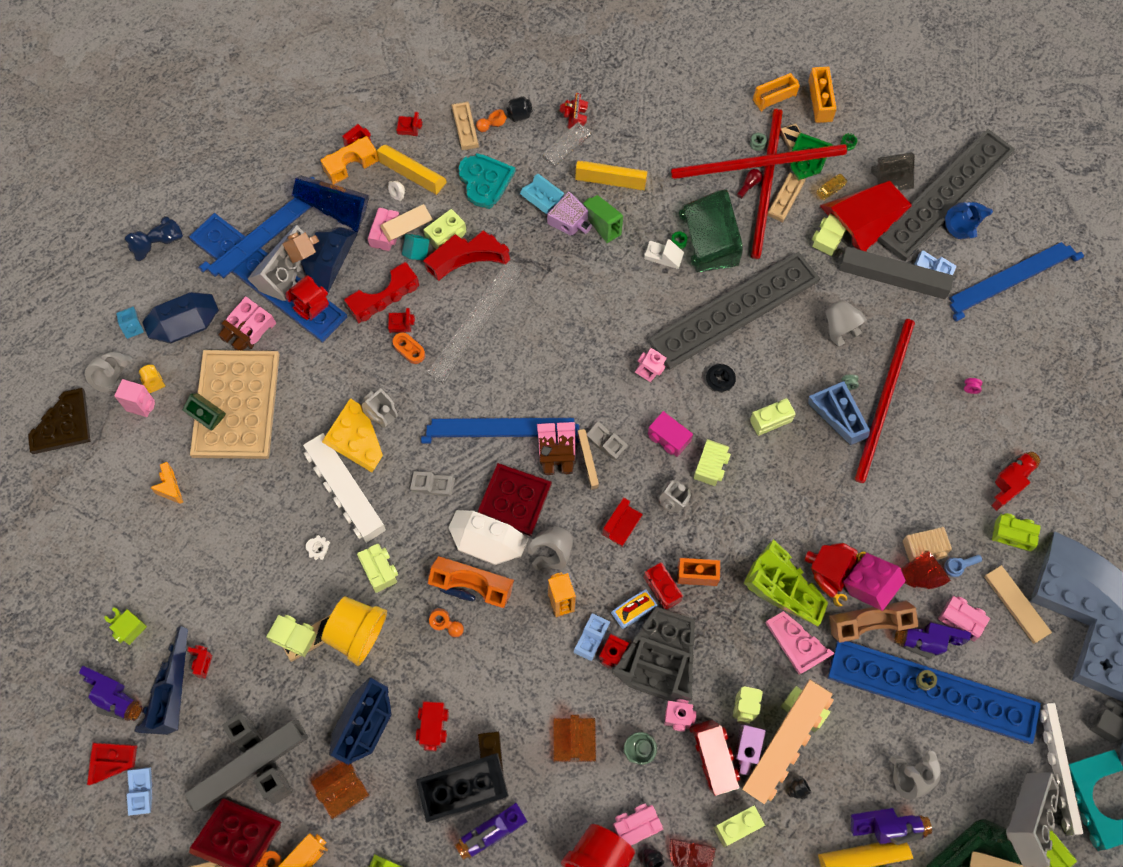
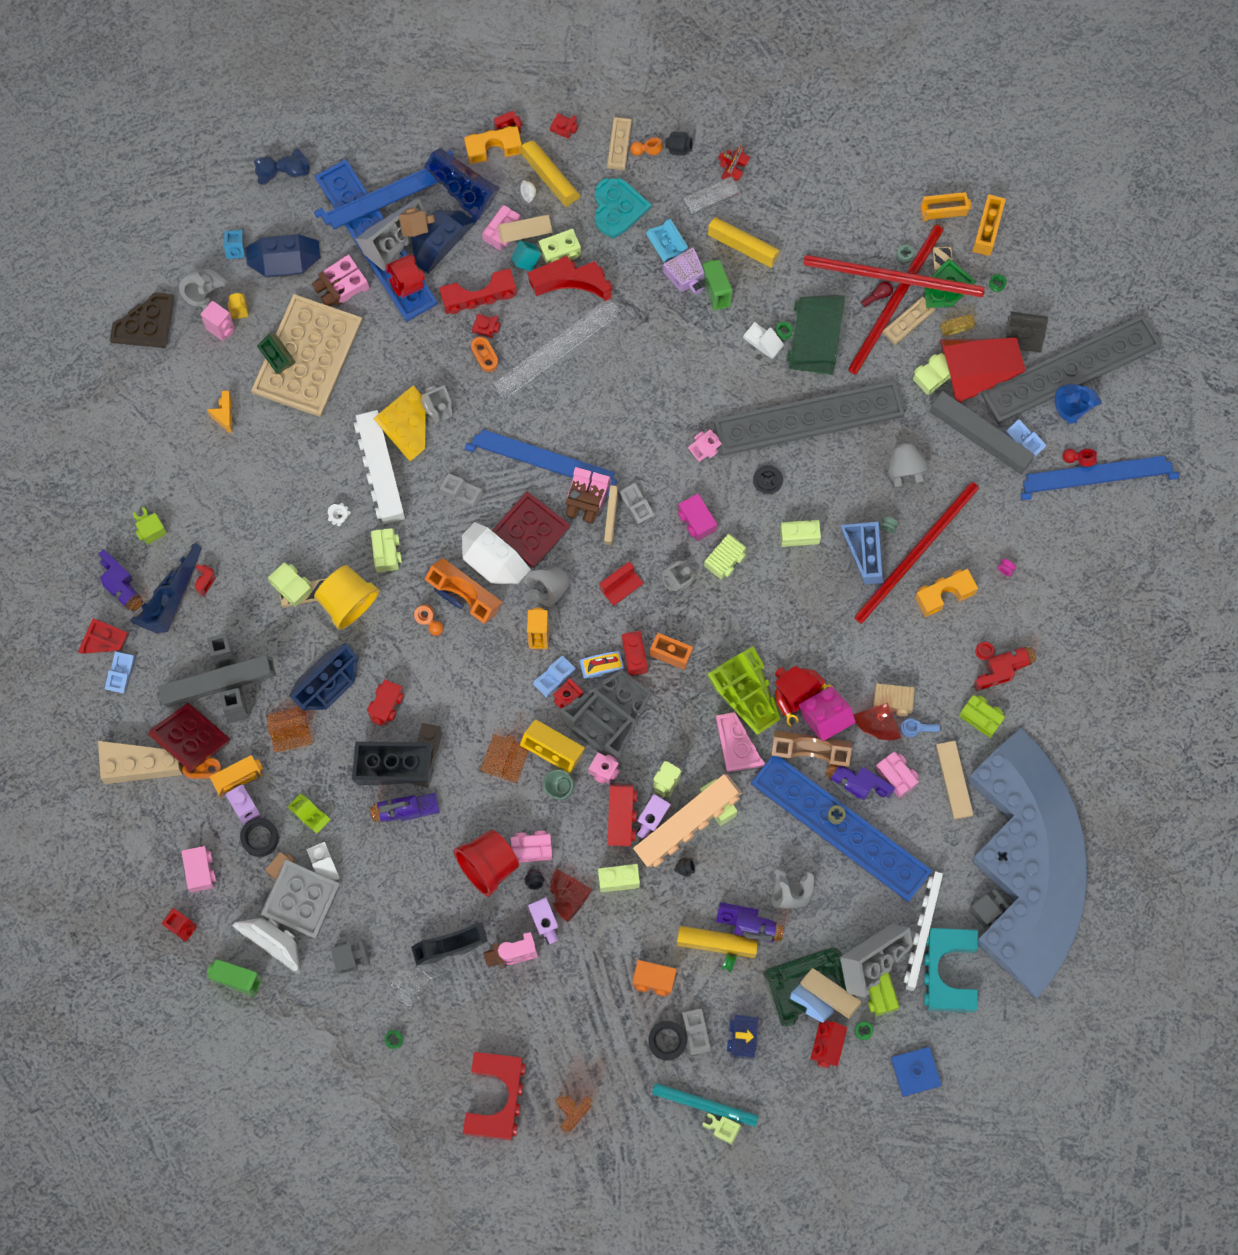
camera: 20 degrees right, 5 degrees up
(619, 710) = (552, 746): none -> yellow brick
(939, 416) = (959, 584): none -> light orange arch
(988, 469) = (985, 651): none -> red plate
(995, 264) = (1085, 457): none -> red plate

